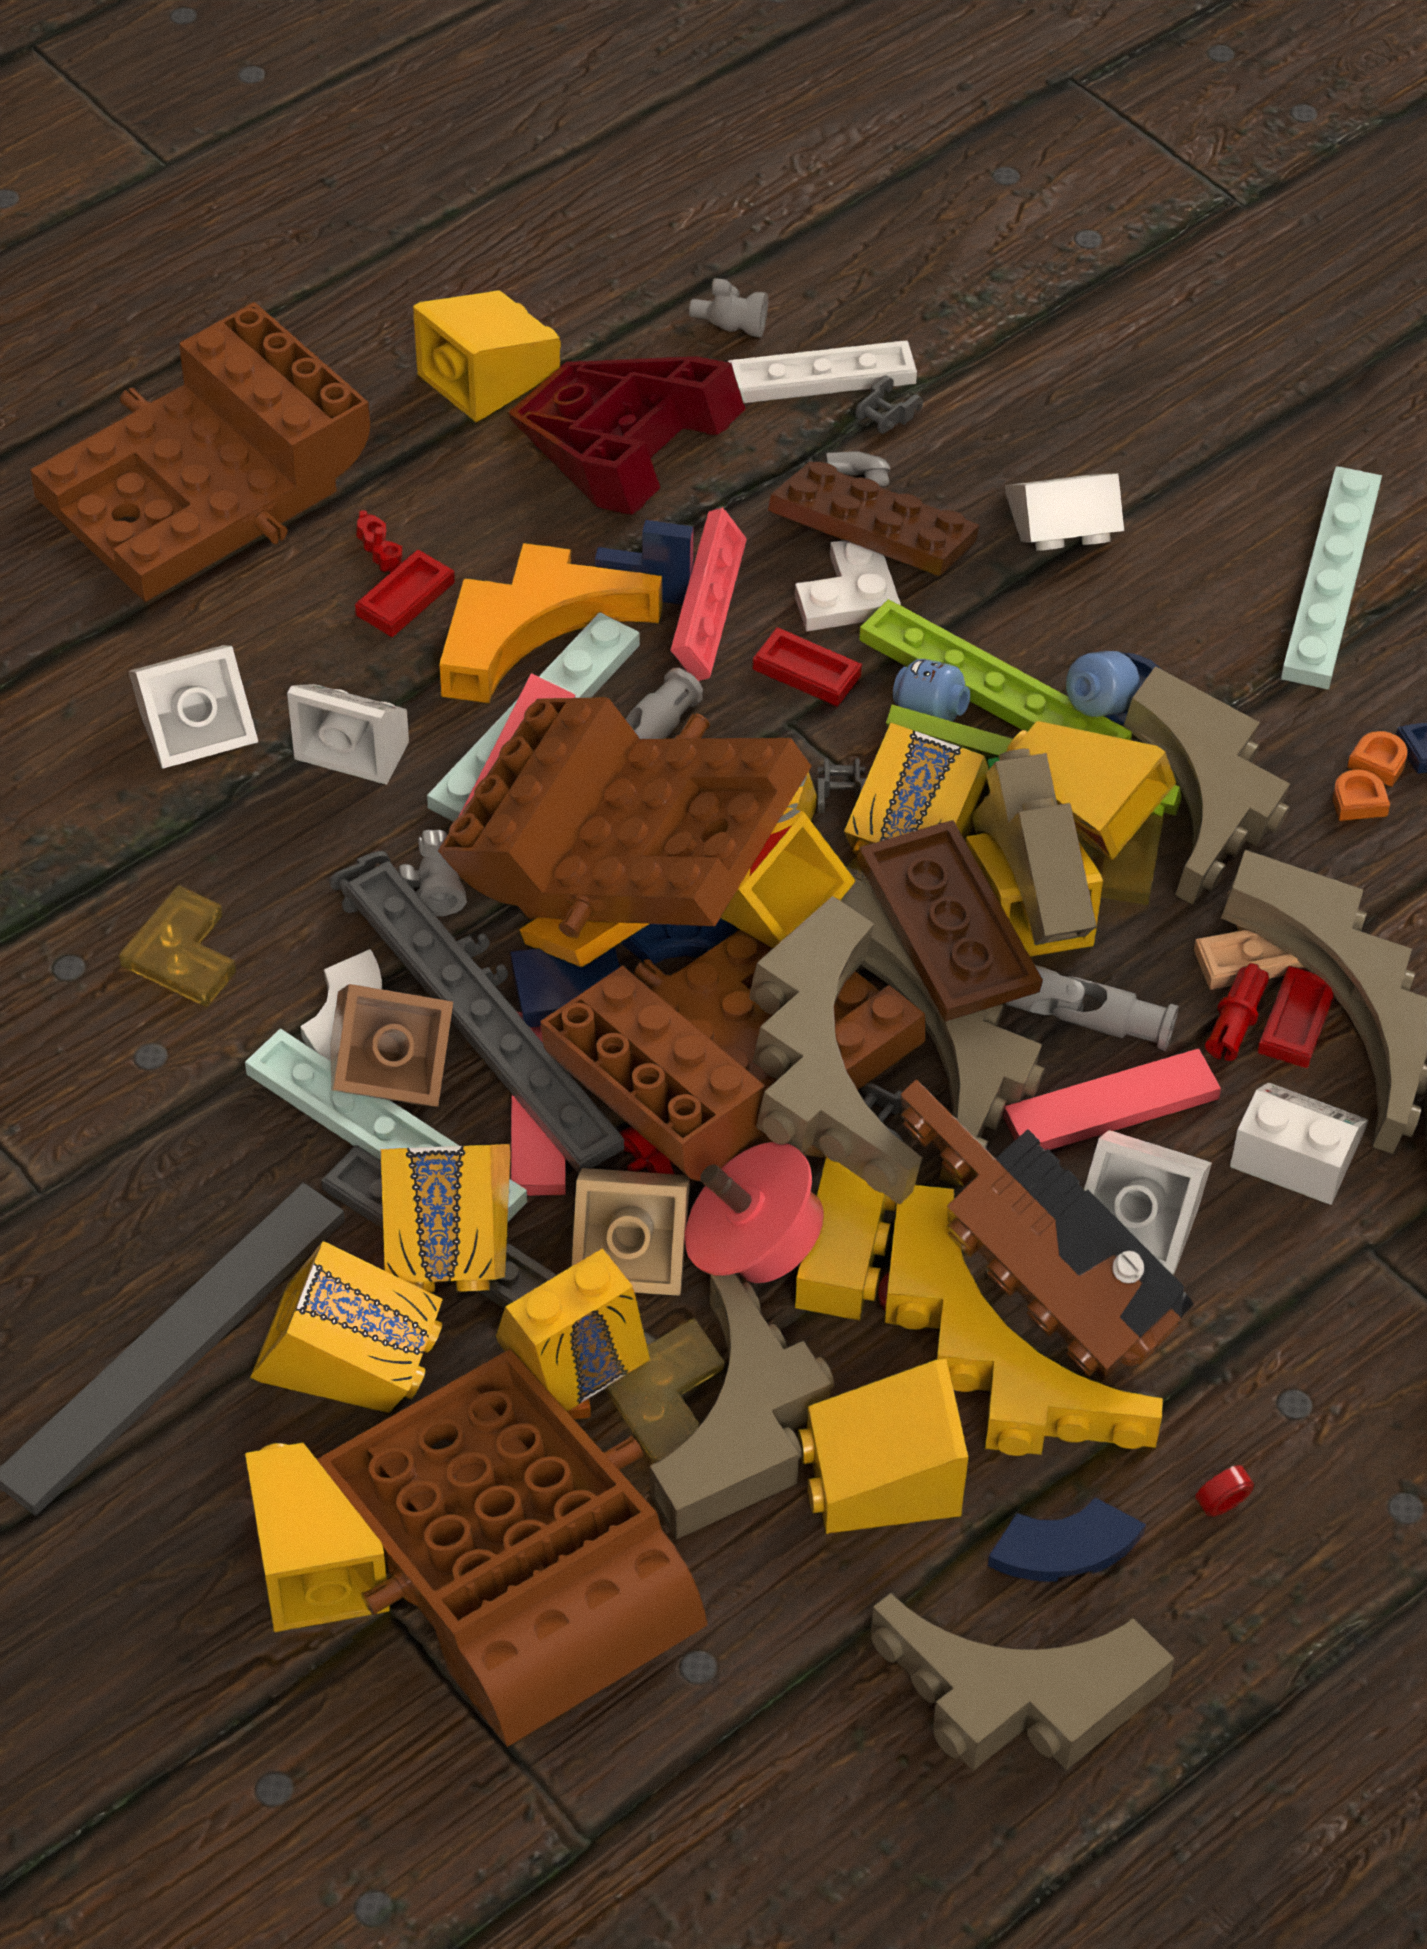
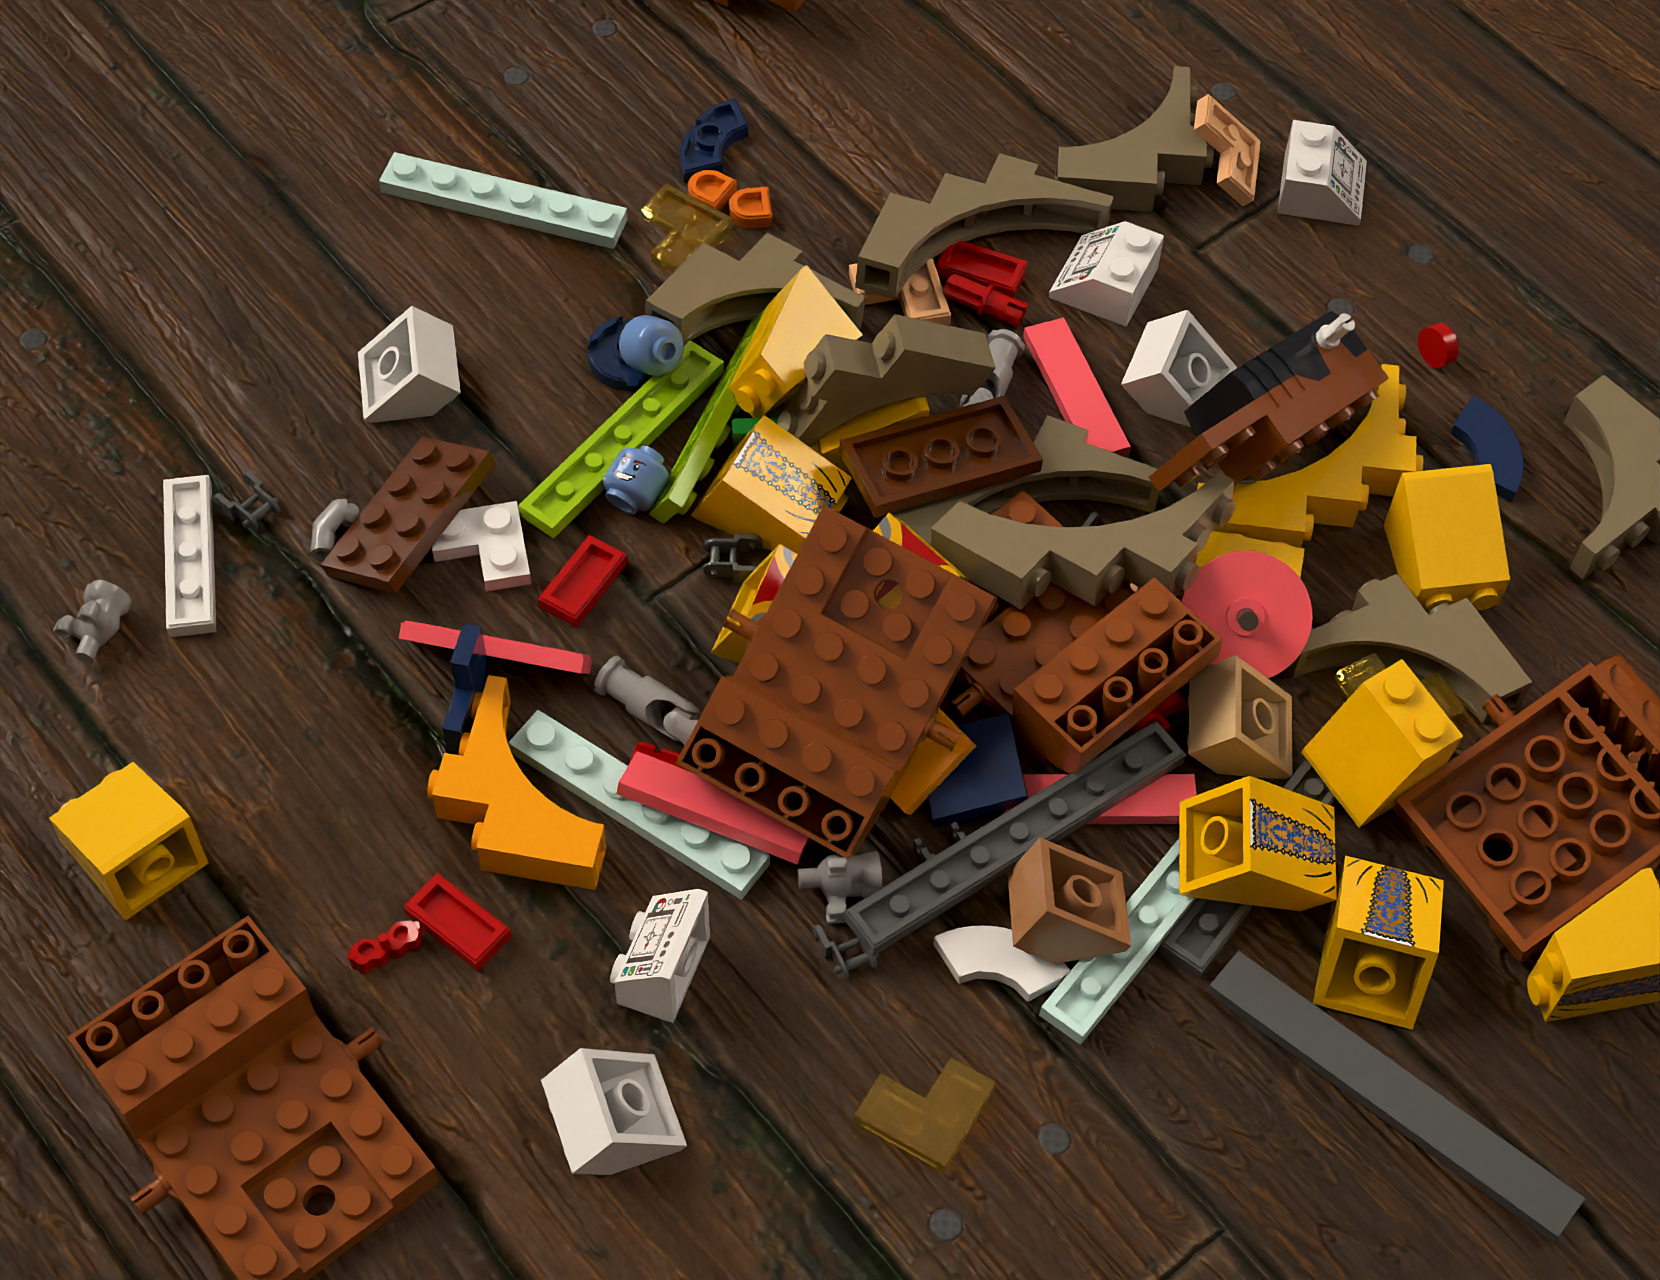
camera: 90 degrees left, 5 degrees up
(613, 415) = (230, 738): dark red wedge -> none
(1317, 746) = (688, 224): none -> clear yellow tile

